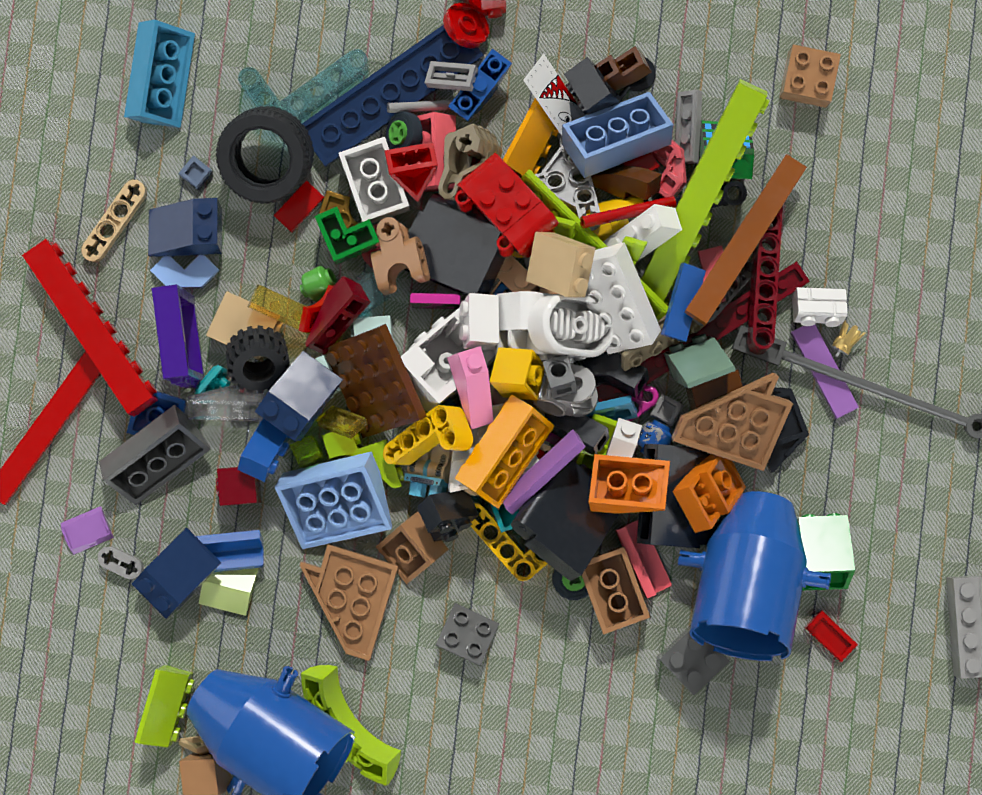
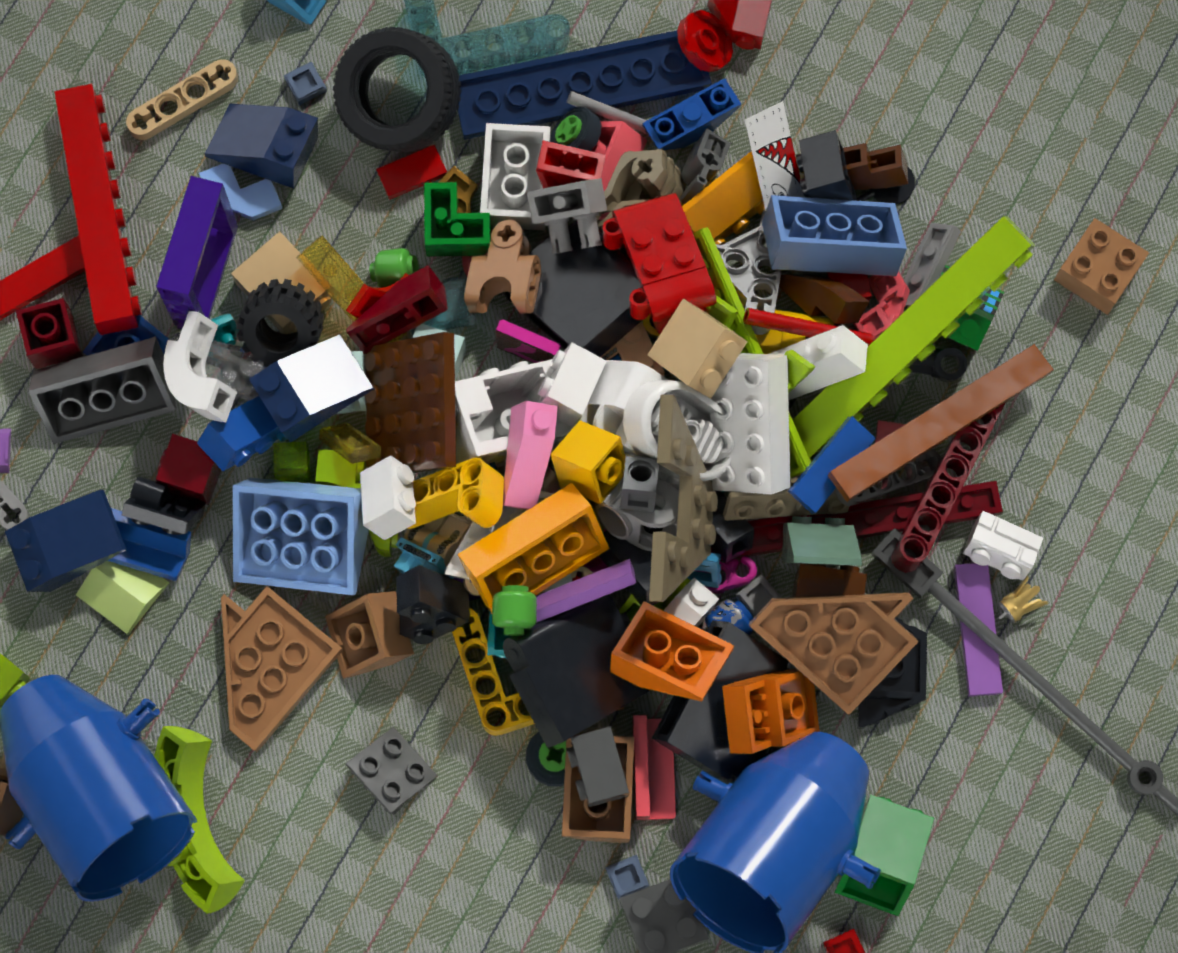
camera: 15 degrees right, 10 degrees down
(97, 430) = (49, 333): none -> dark red head
(209, 425) = (186, 371): none -> white arch
(232, 522) = (154, 505): none -> black plate
(387, 454) = (387, 497): none -> white brick
(422, 189) = (559, 203): none -> light grey brick
(451, 80) = (657, 93): light grey tile -> none
(503, 118) = (703, 163): none -> dark grey piece
(510, 500) = (514, 609): none -> bright green head
(610, 390) = (681, 554): none -> dark tan wing
(610, 580) = (598, 767): none -> dark grey brick
(655, 638) = (627, 876): none -> sand blue tile

